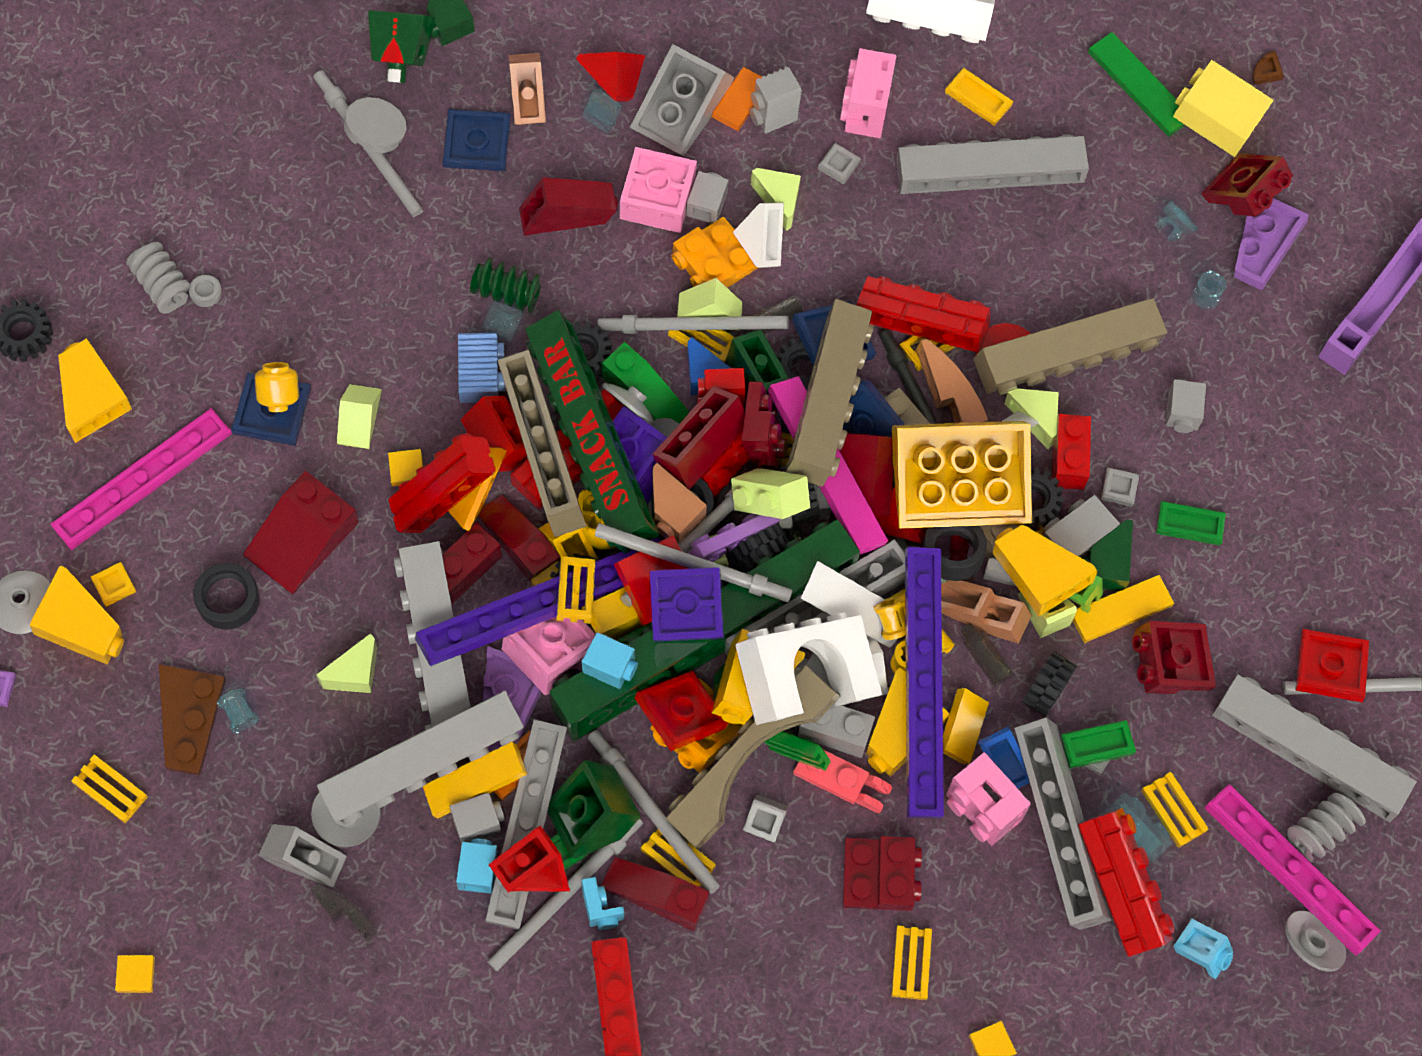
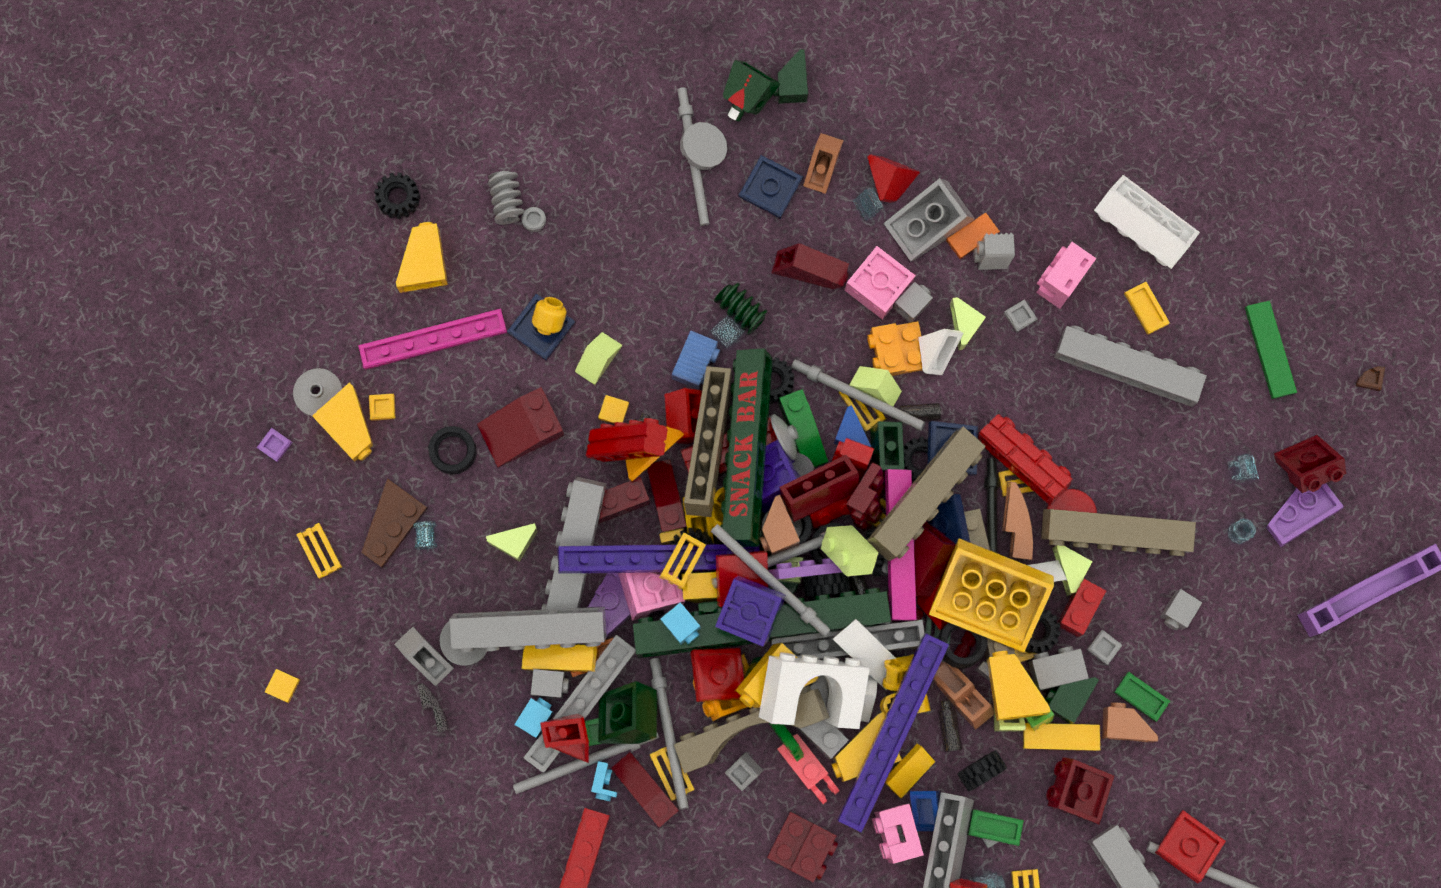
camera: 25 degrees right, 10 degrees up
(1190, 560) = (1125, 724): none -> nougat slope
(1221, 107) = (1321, 396): light yellow brick -> none

